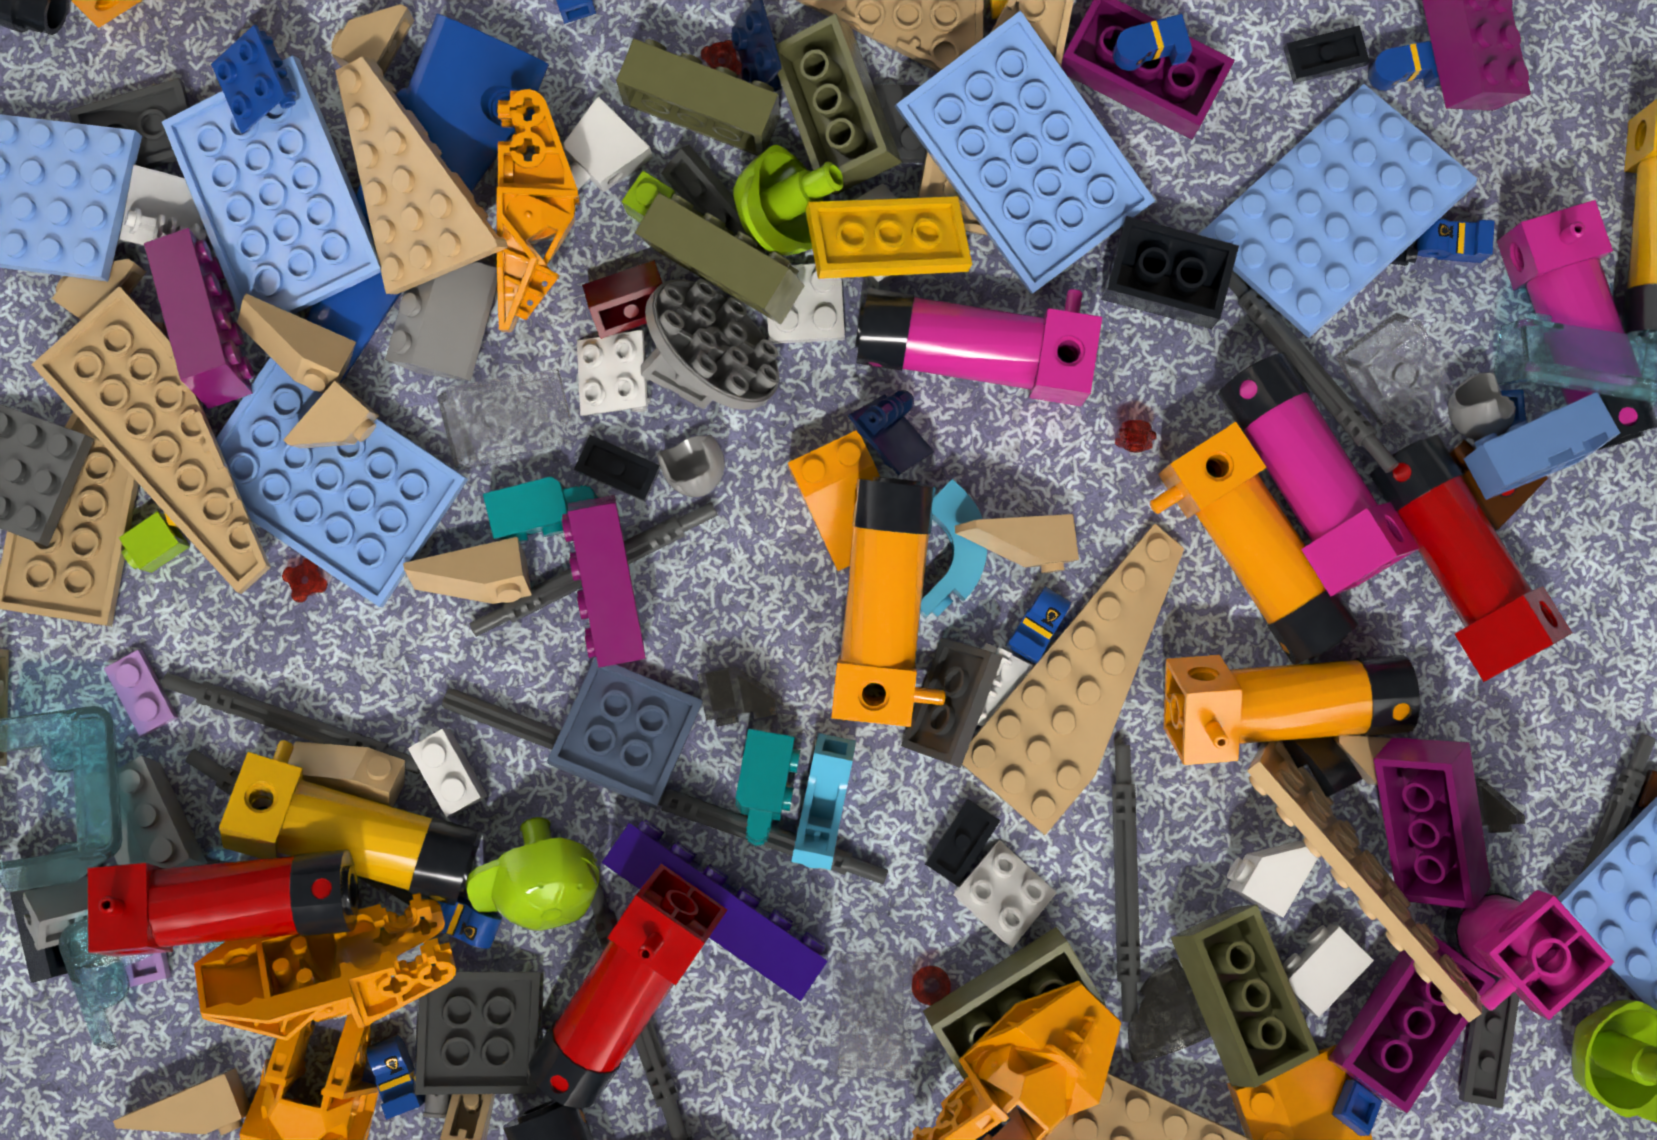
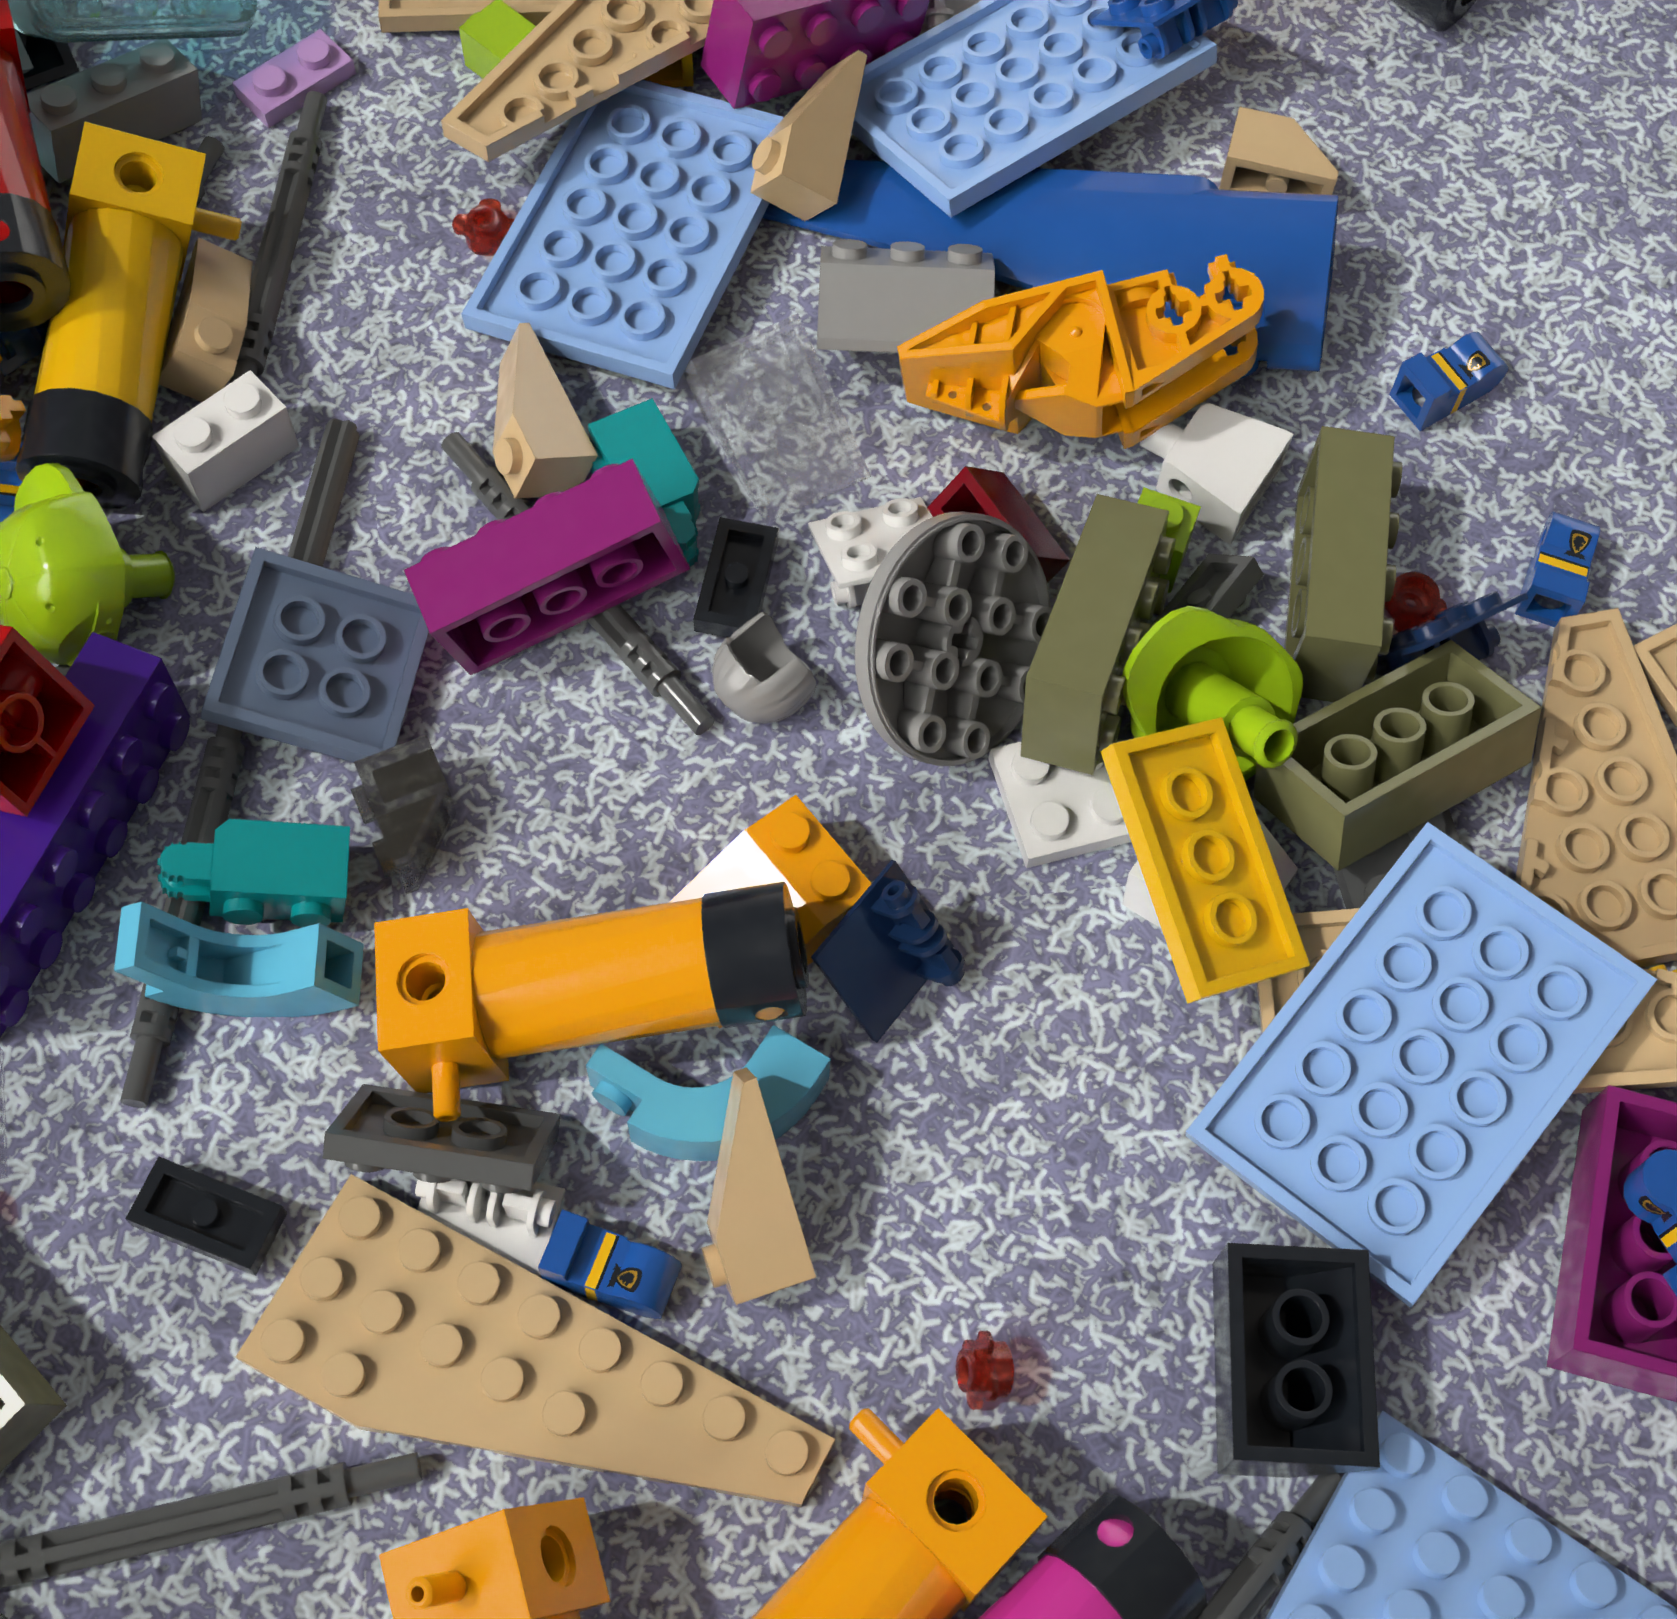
camera: 75 degrees right, 20 degrees down
(334, 420) = (718, 193): tan slope -> none
(415, 205) = (1065, 204): tan wing -> none
(983, 343) = (1075, 1068): dark pink piece -> none
(1004, 894) = (120, 1307): white hinge -> none

